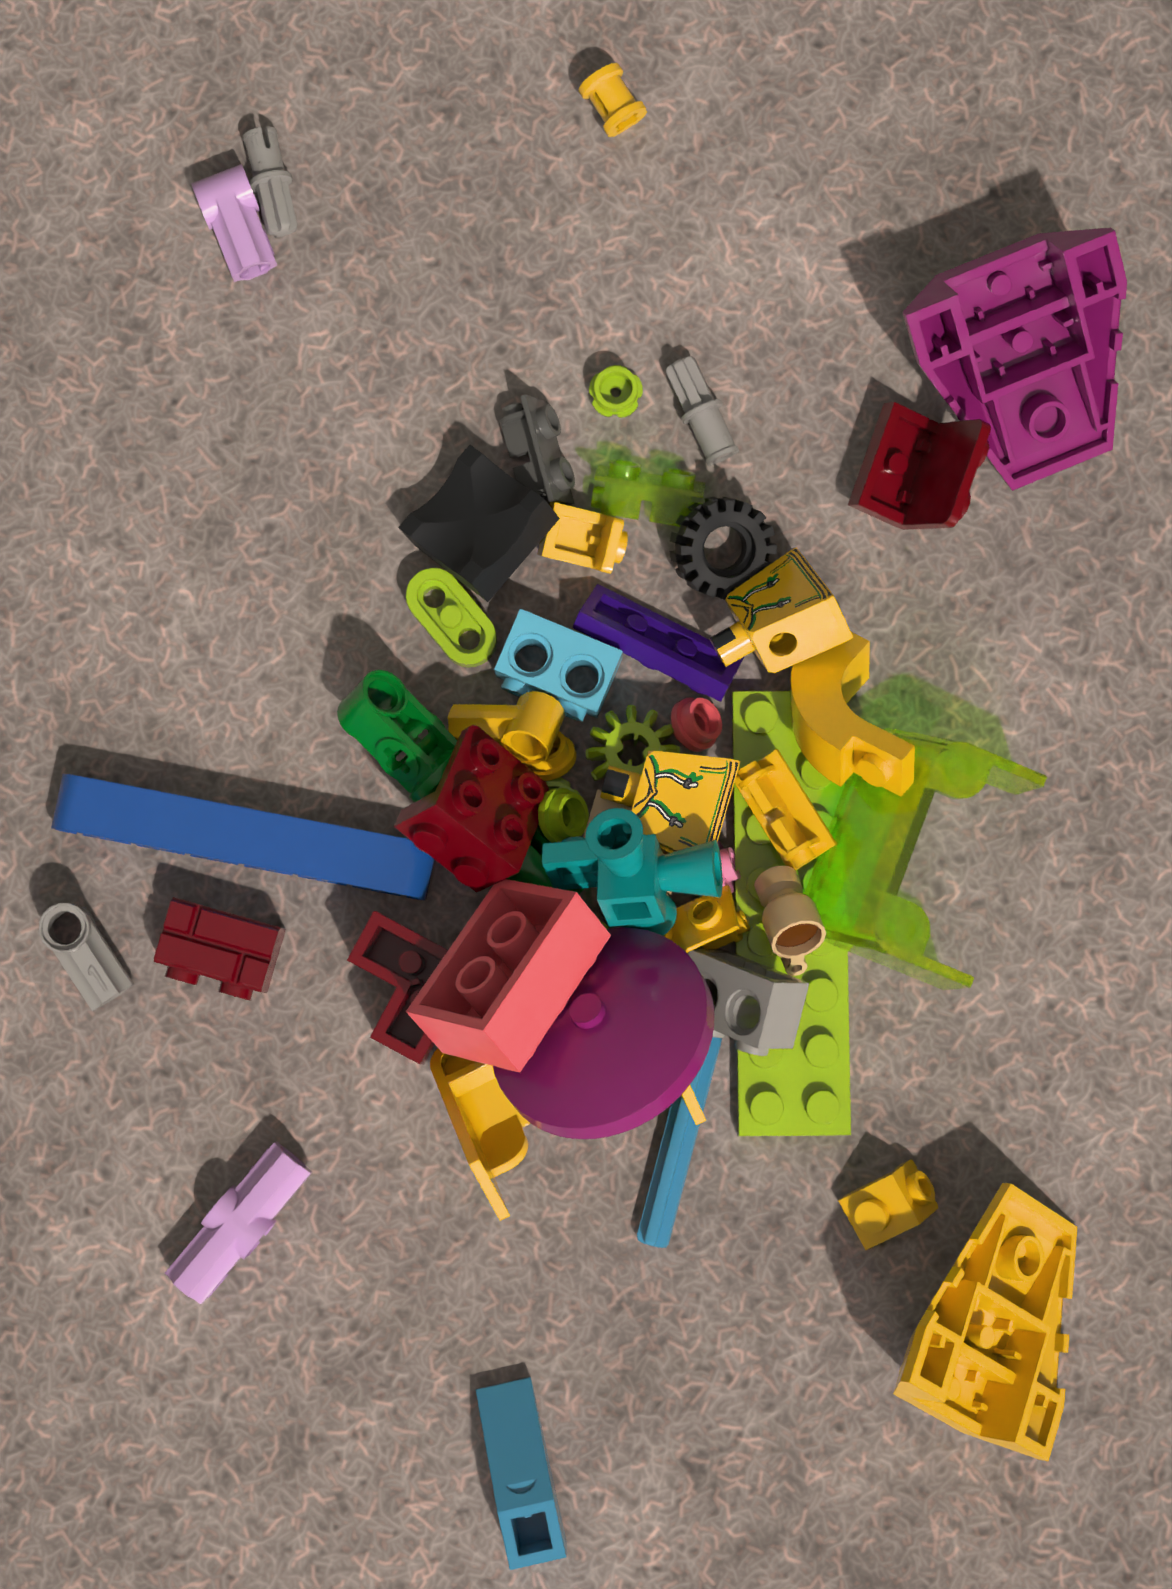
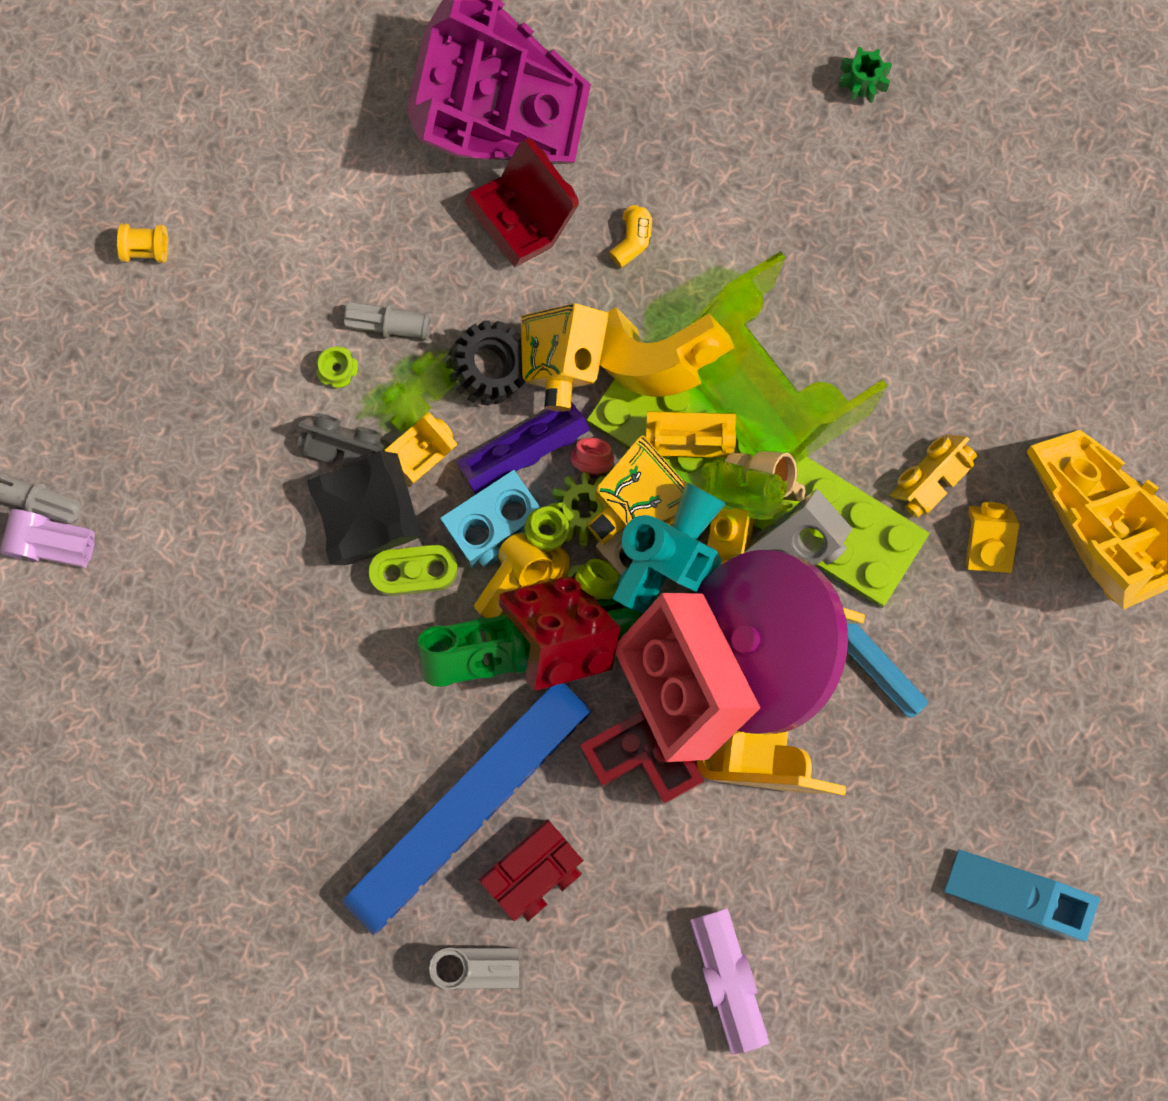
camera: 60 degrees left, 5 degrees down
(595, 720) = (551, 517): none -> lime plate
(754, 925) = (758, 496): none -> clear neon green hinge
(945, 1101) = (919, 484): none -> yellow hinge
(973, 612) = (638, 235): none -> yellow arm

